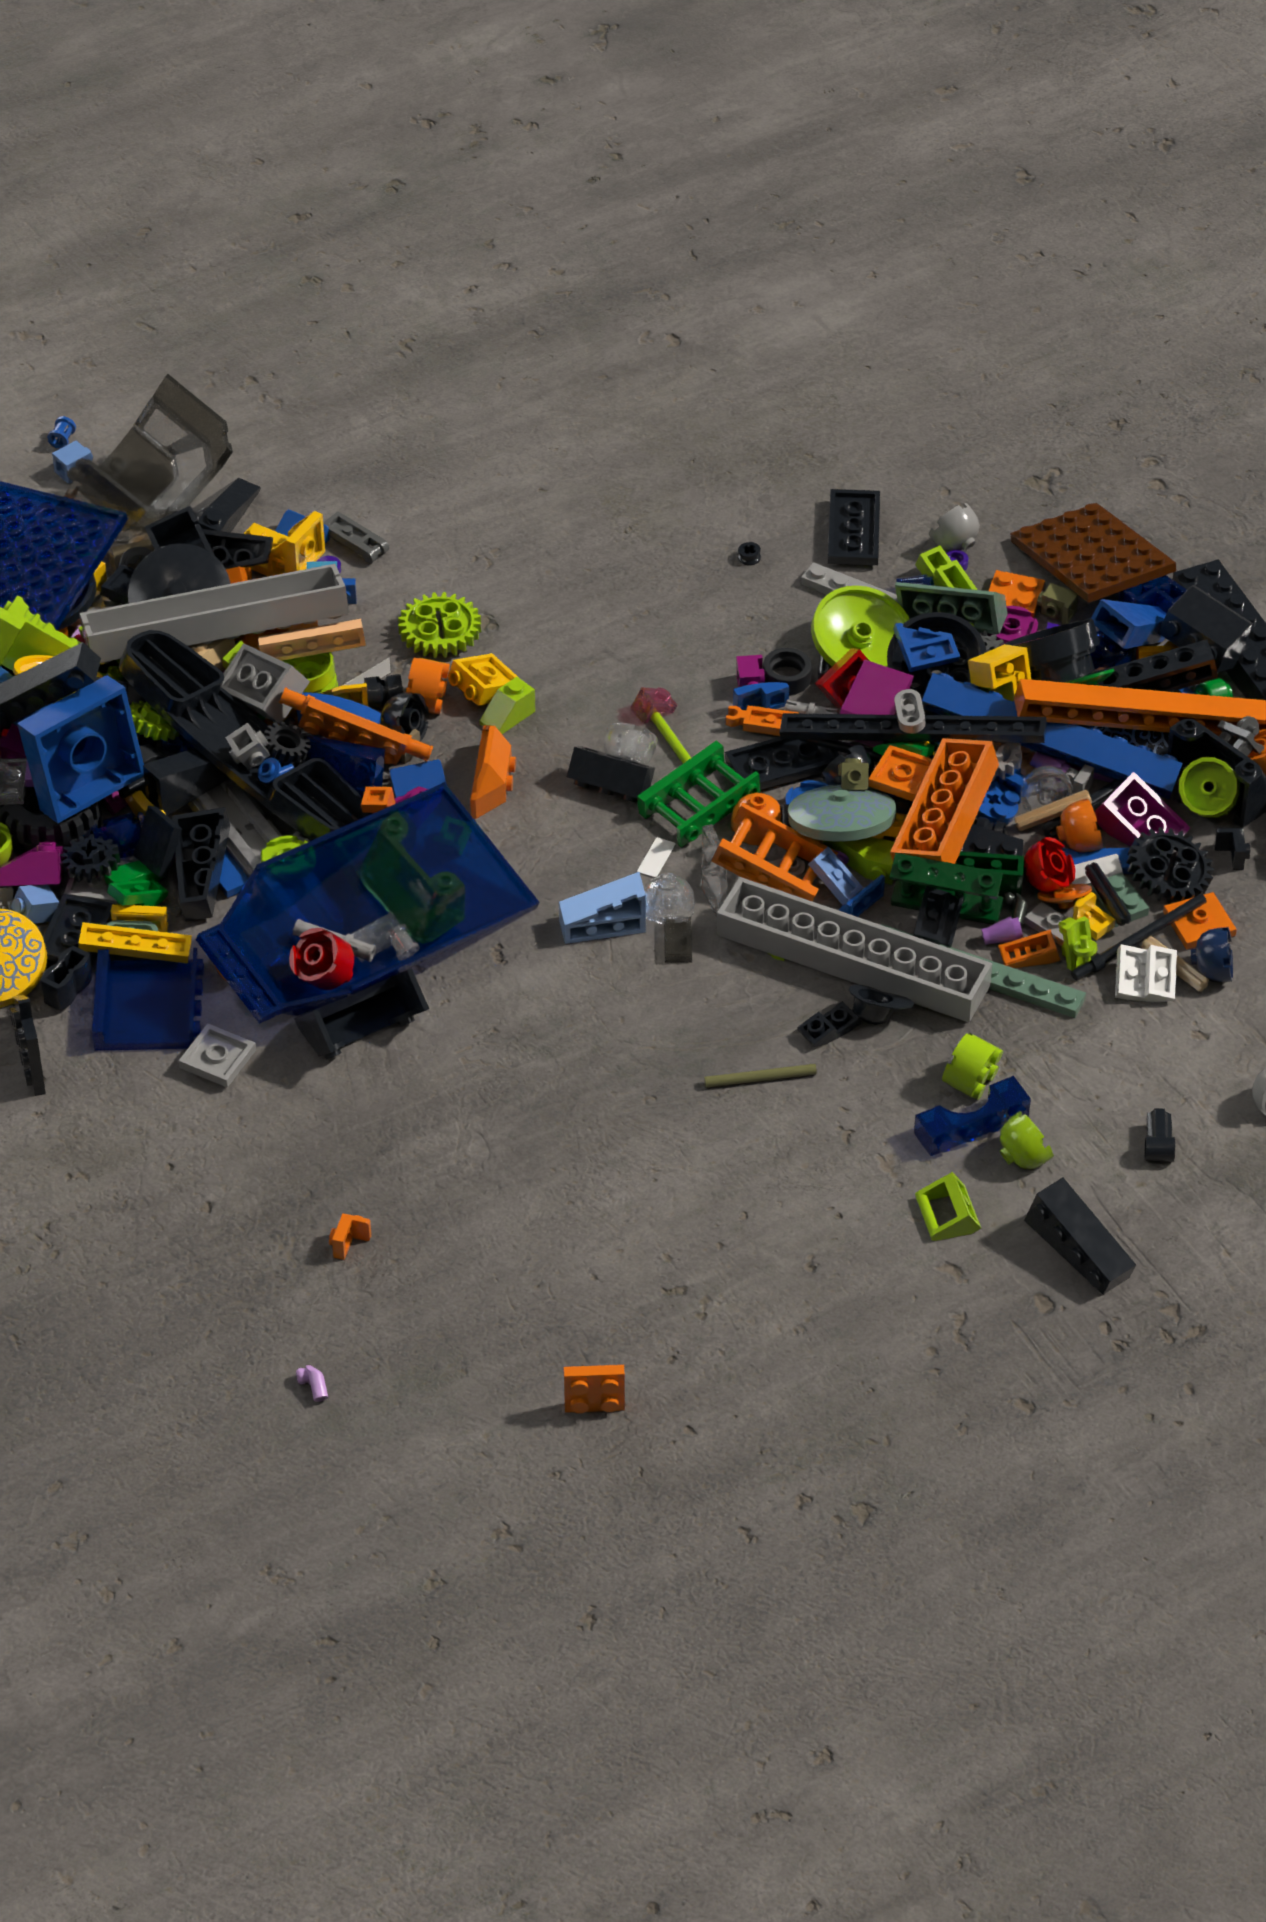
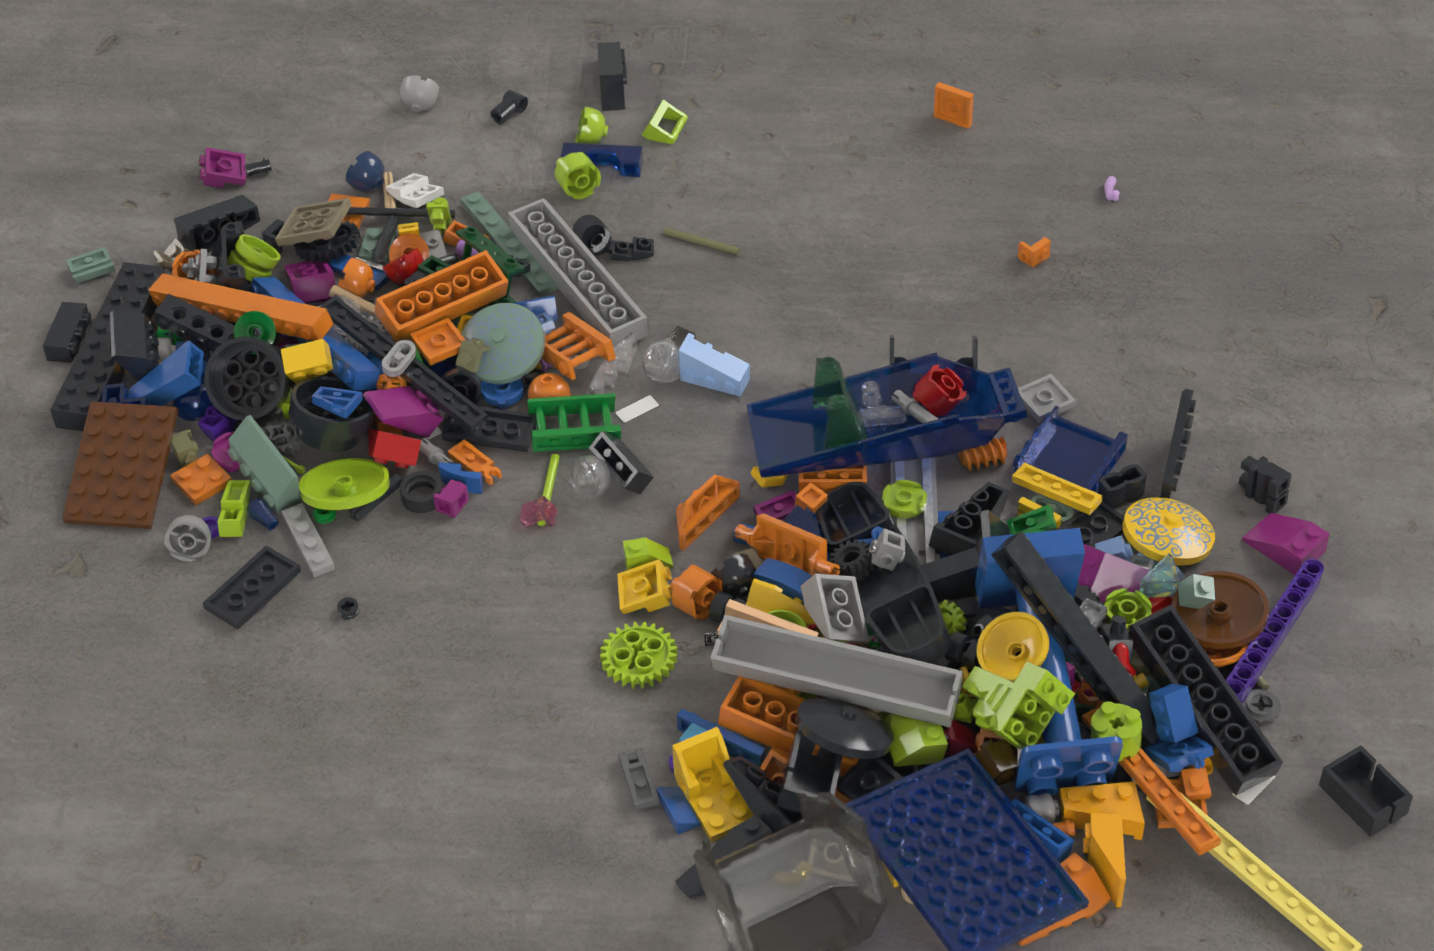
camera: 145 degrees left, 0 degrees up
(1197, 857) = (313, 222): none -> dark tan plate

